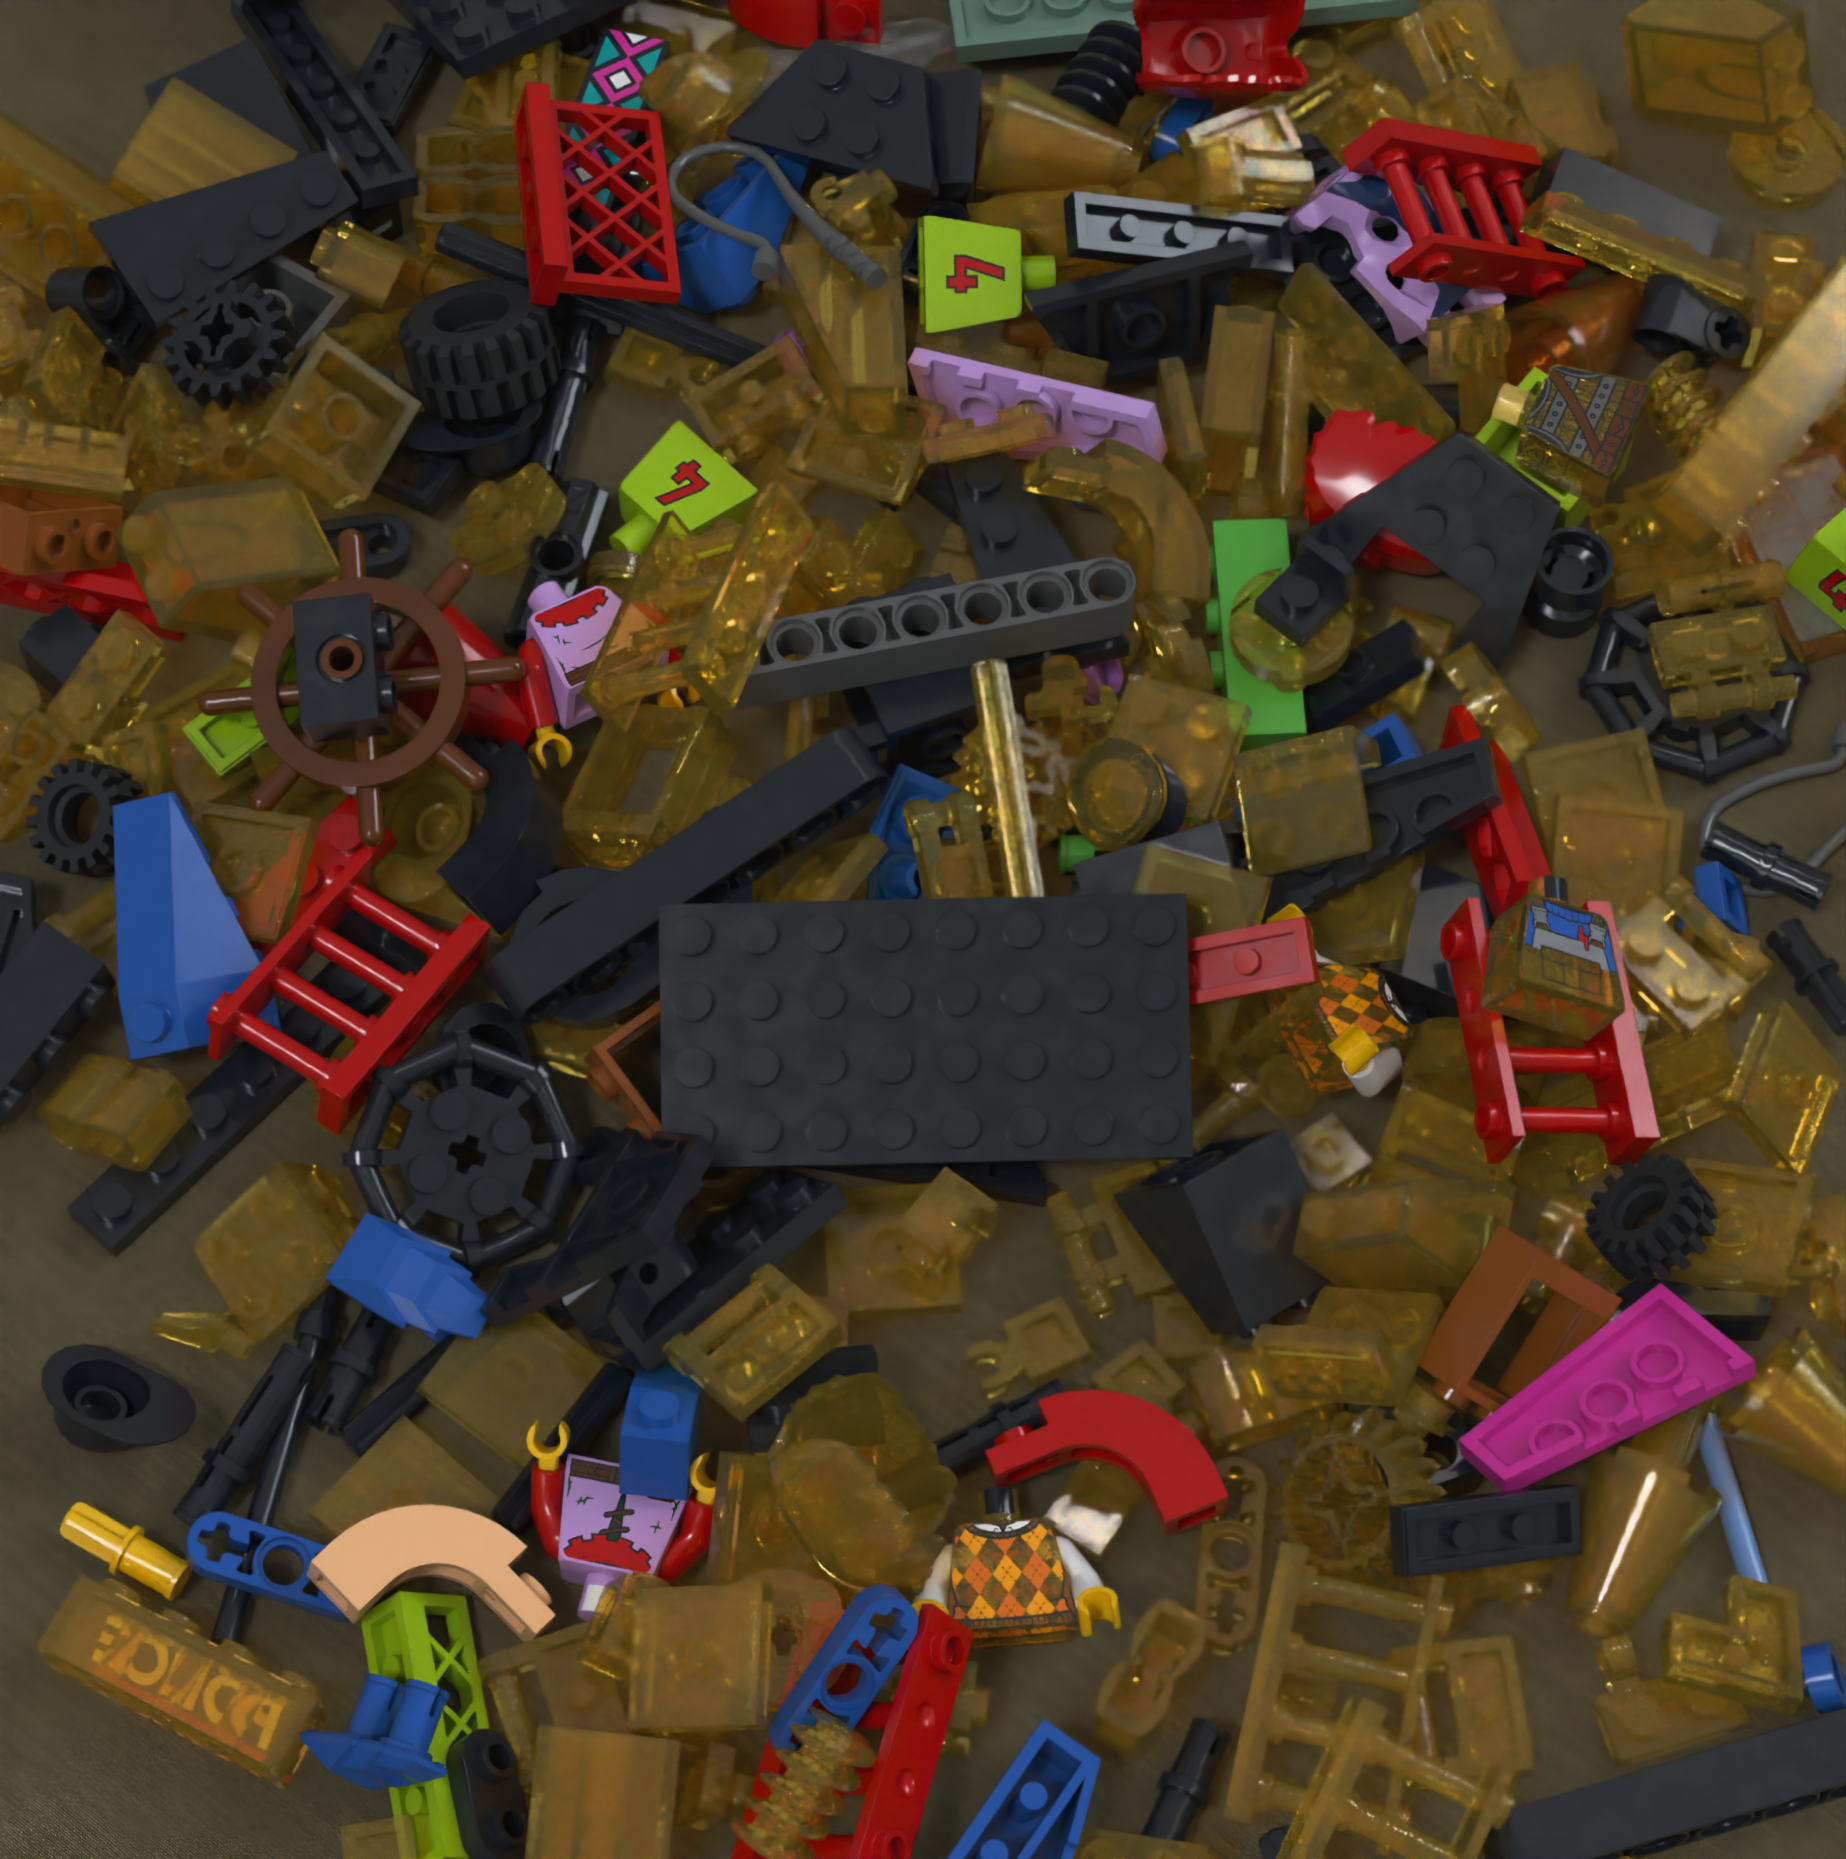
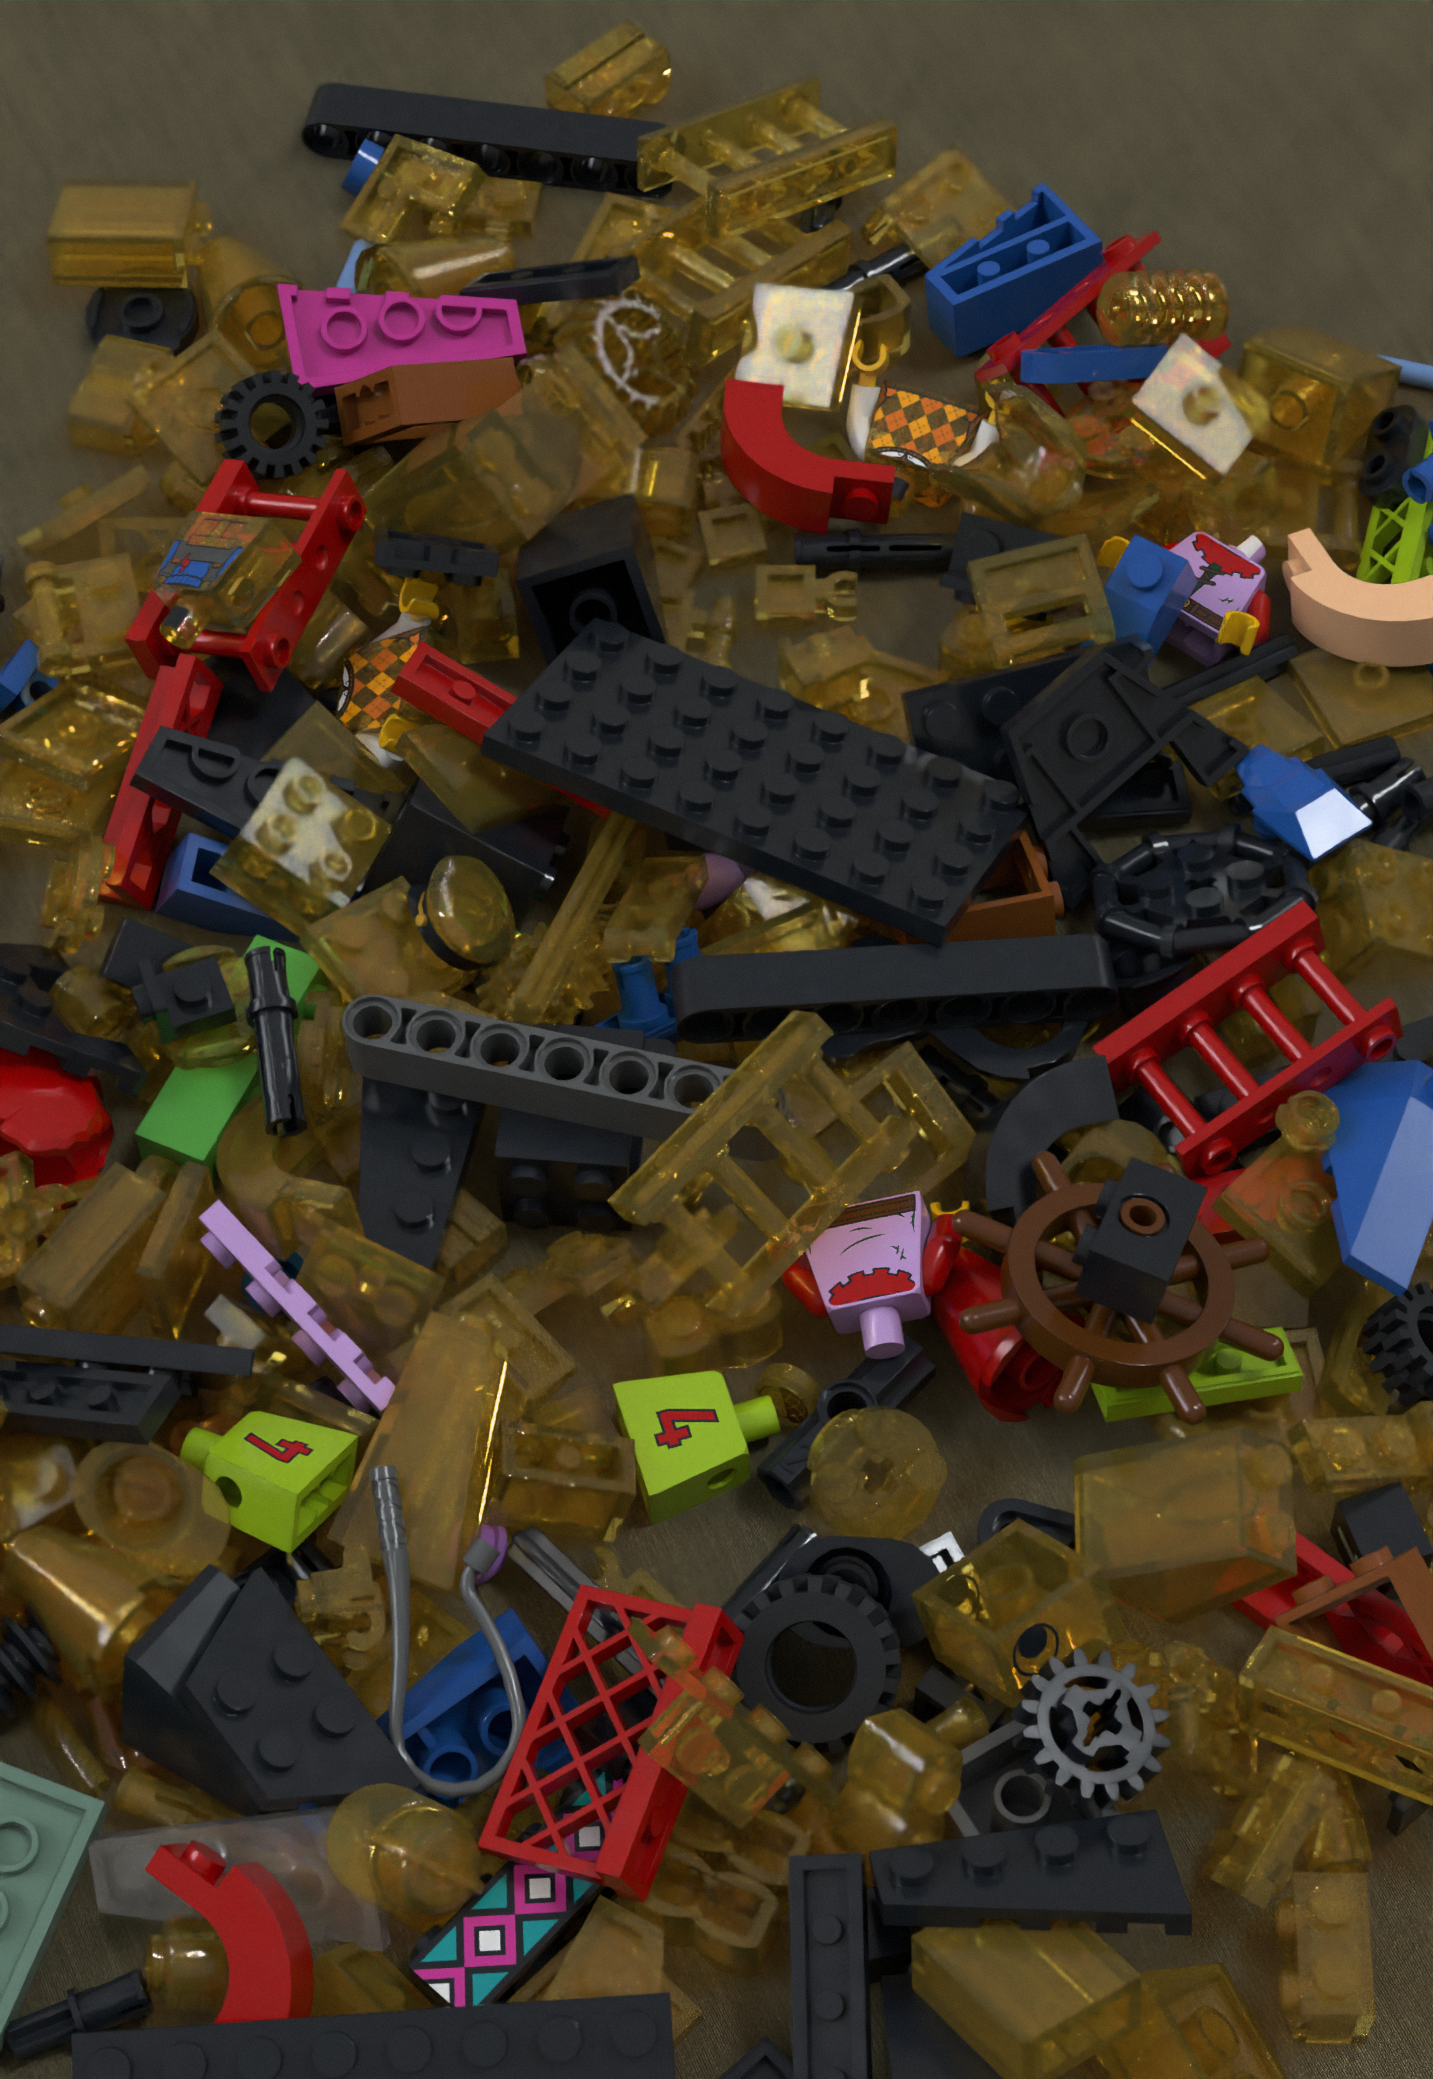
camera: 150 degrees left, 5 degrees down
(105, 309) = (1220, 1923): black piece -> none
(249, 911) = (1317, 1113): none -> clear yellow plate
(496, 201) = (717, 1744): none -> clear yellow bracket
(1181, 1583) = (801, 342): none -> clear yellow plate
(1218, 611) = (272, 1018): none -> black pin
(1376, 1094) = (410, 553): none -> black wing

